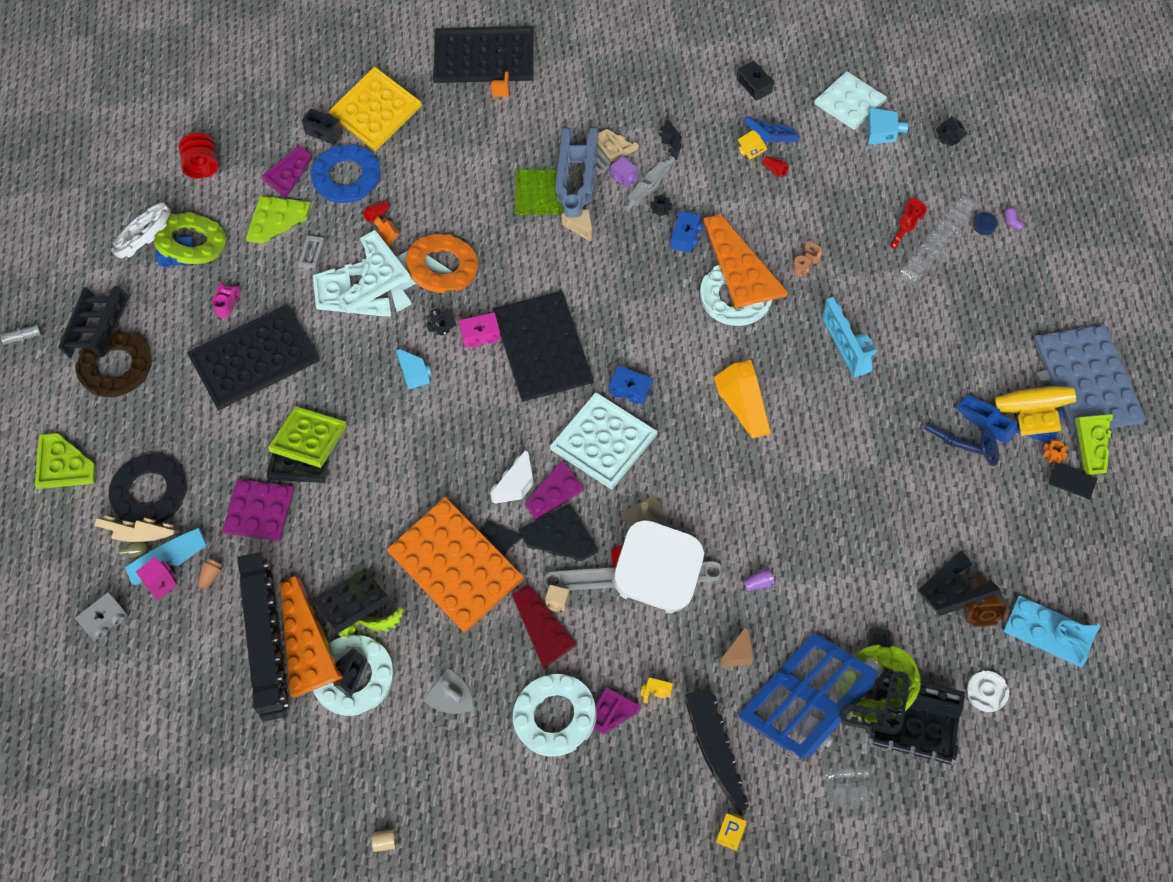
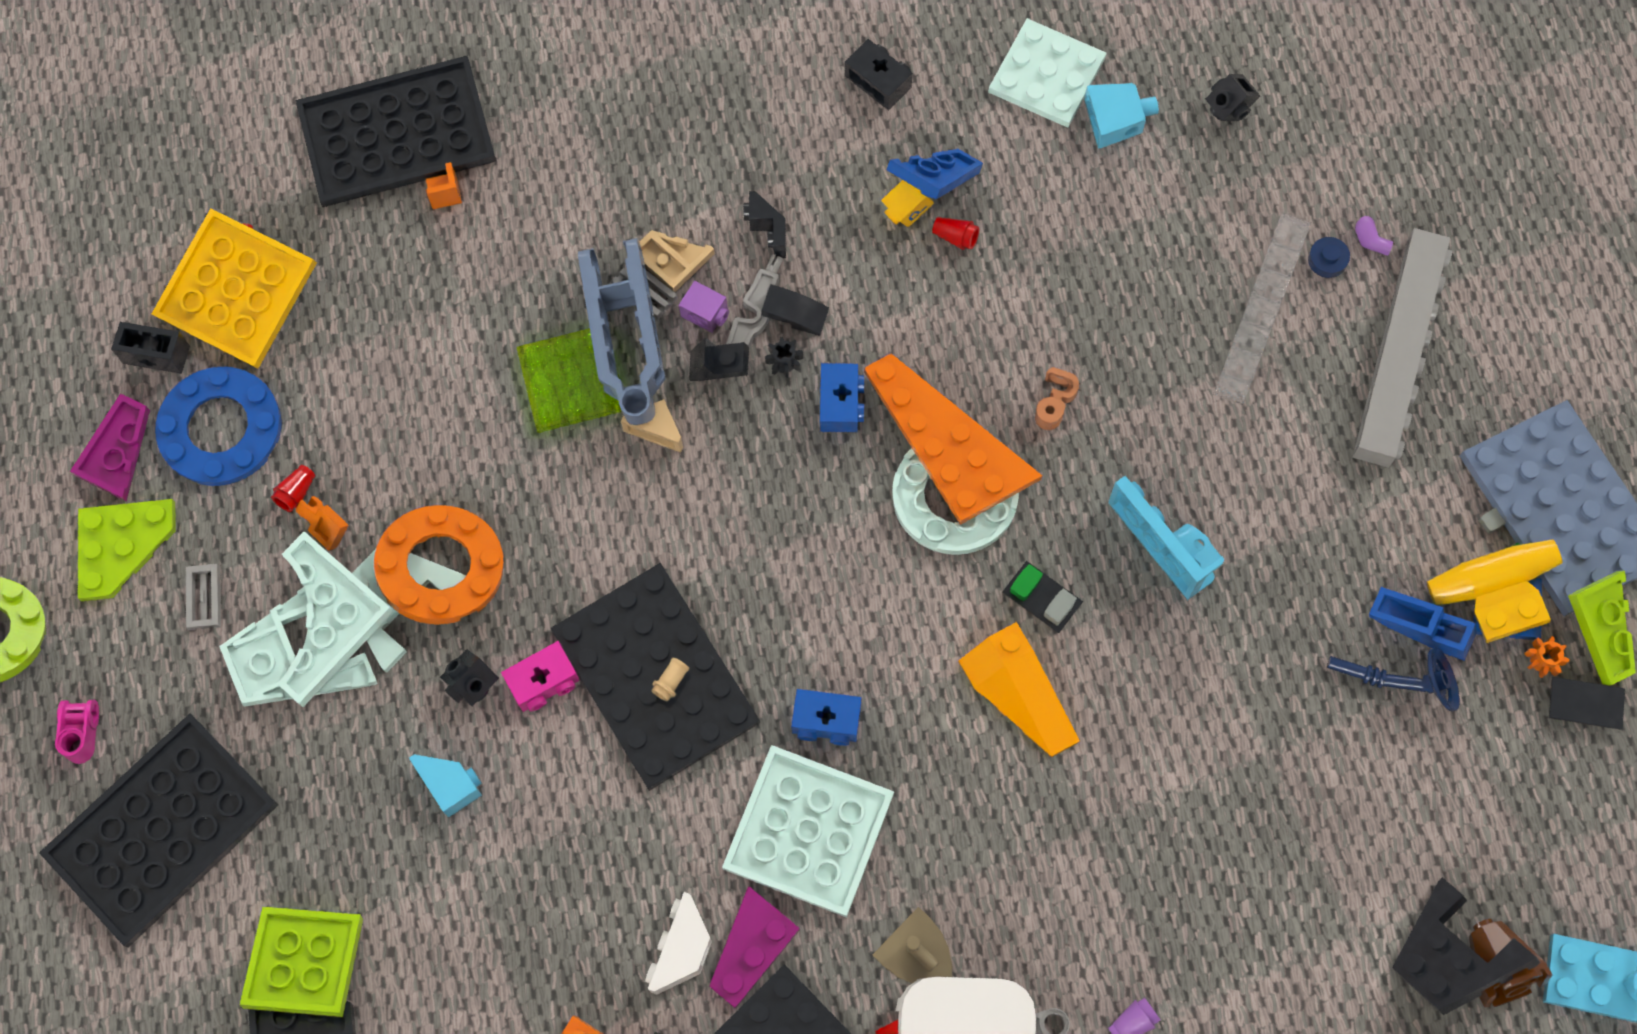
camera: 15 degrees left, 10 degrees up
(546, 347) = (670, 679): none -> tan pin
(624, 199) = (718, 361): none -> black slope
(676, 185) = (796, 309): none -> black slope
(771, 357) = (1042, 596): none -> piece
(913, 211) = (1207, 261): red piece -> none
(1013, 277) = (1402, 348): none -> light grey brick

